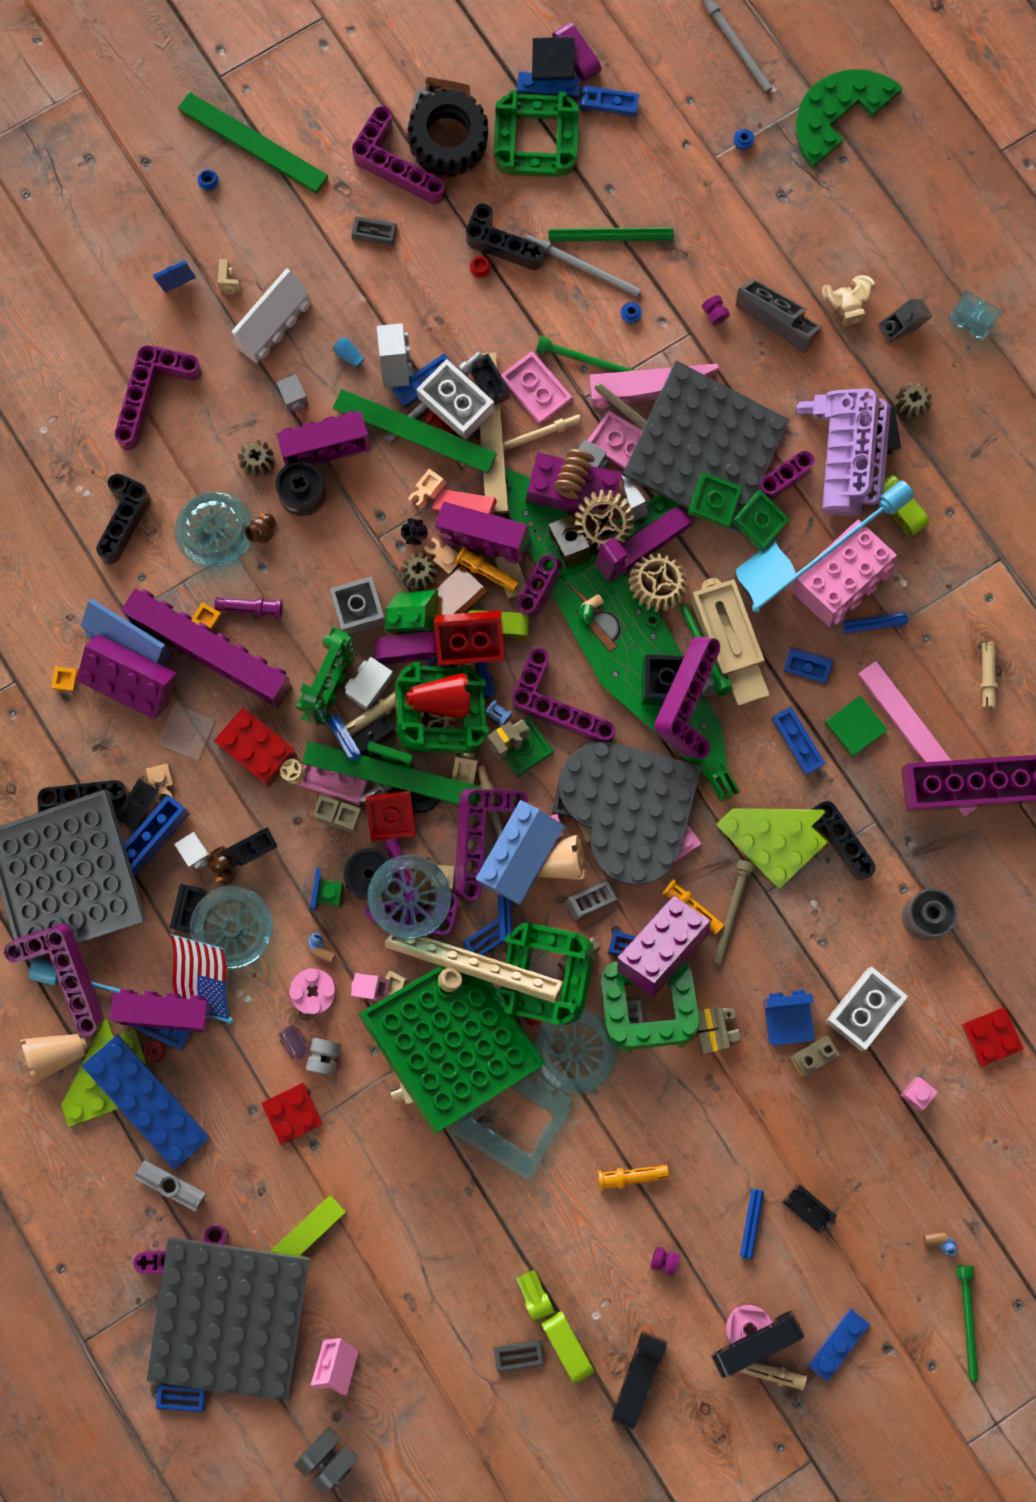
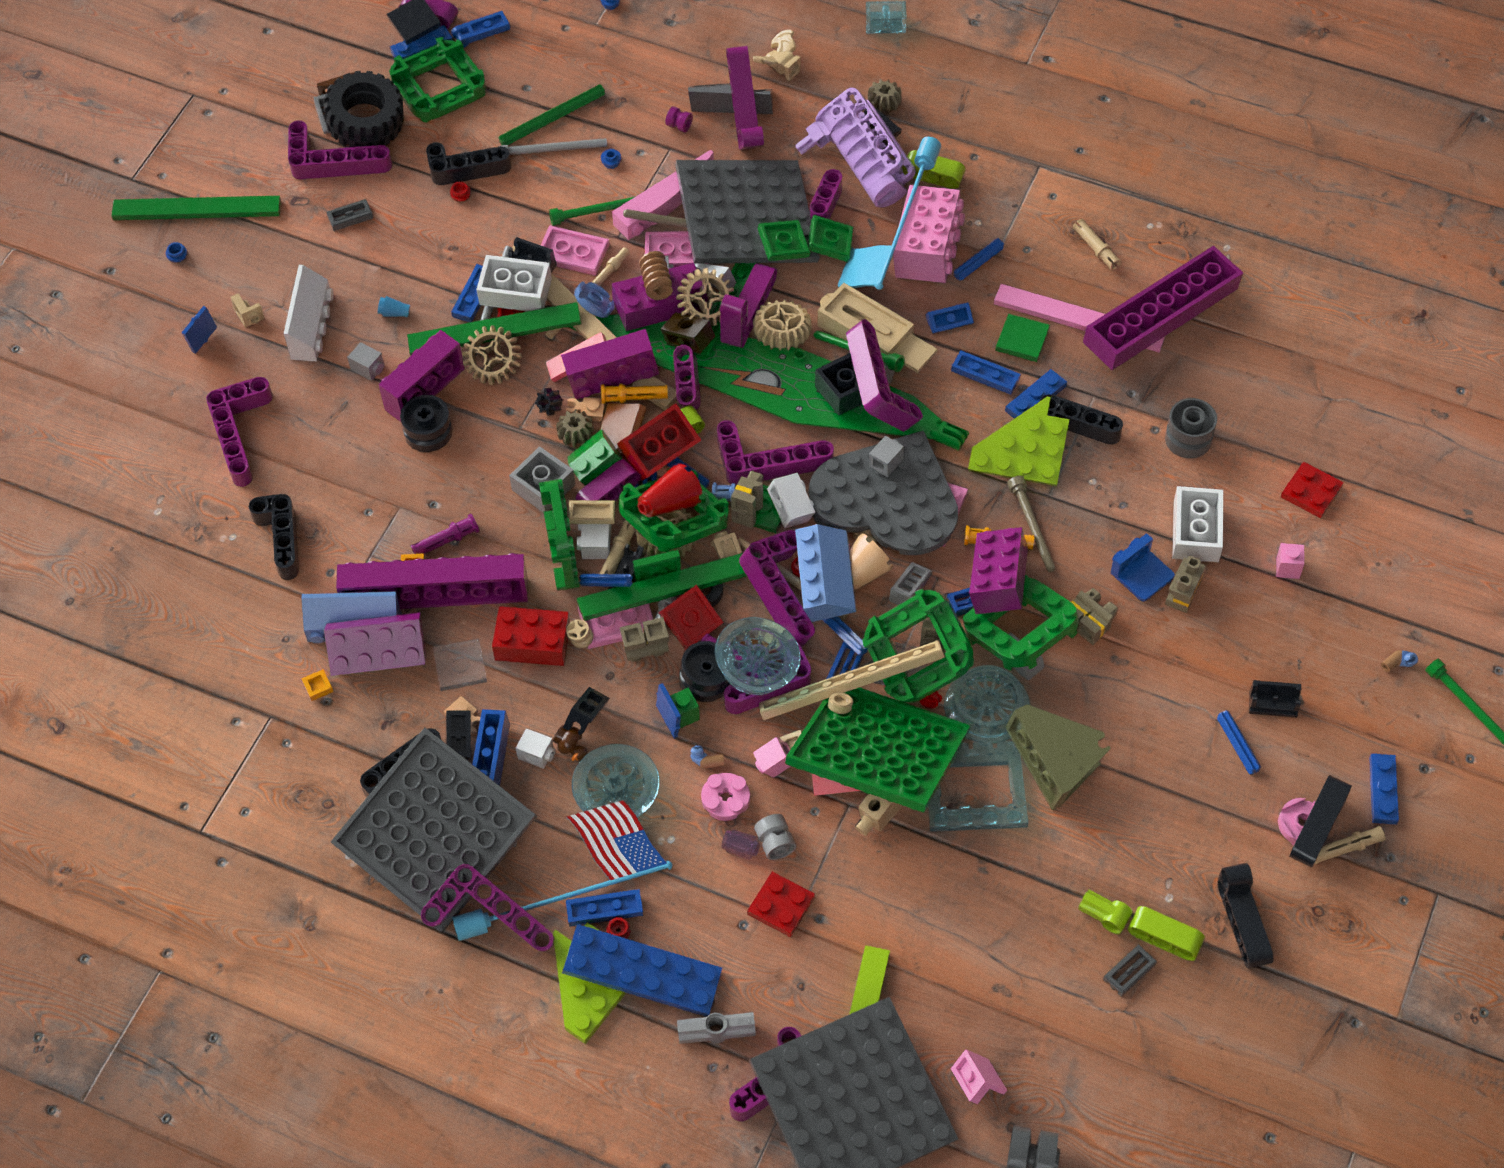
camera: 30 degrees left, 20 degrees down
(51, 1054) = (524, 987): light nougat cone -> none
(161, 1012) = (605, 880): magenta brick -> none
(185, 903) = (560, 791): black hinge -> none
(206, 554) = (369, 495): clear light blue piece -> none
(248, 461) = (369, 424): dark tan gear -> none
(260, 529) = (412, 474): reddish brown animal -> none
(373, 666) = (591, 512): none -> tan tile
(380, 466) = (494, 346): none -> tan gear
(394, 355) = (436, 282): light grey brick -> none
(428, 486) = (535, 364): light nougat plate -> none
(516, 454) = (594, 299): none -> medium blue tile
(545, 761) = (791, 500): none -> white brick
(588, 607) = (739, 373): green arm -> none
(591, 1143) = (1055, 751): none -> olive ladder
(627, 1177) = (1104, 773): light orange pin -> none
(648, 776) = (886, 456): none -> light grey brick
(669, 1264) = (1191, 813): magenta wheel -> none
(776, 335) = (743, 99): none -> magenta beam
(825, 790) = (1049, 383): none -> blue plate
(905, 319) = (834, 48): dark grey slope -> none

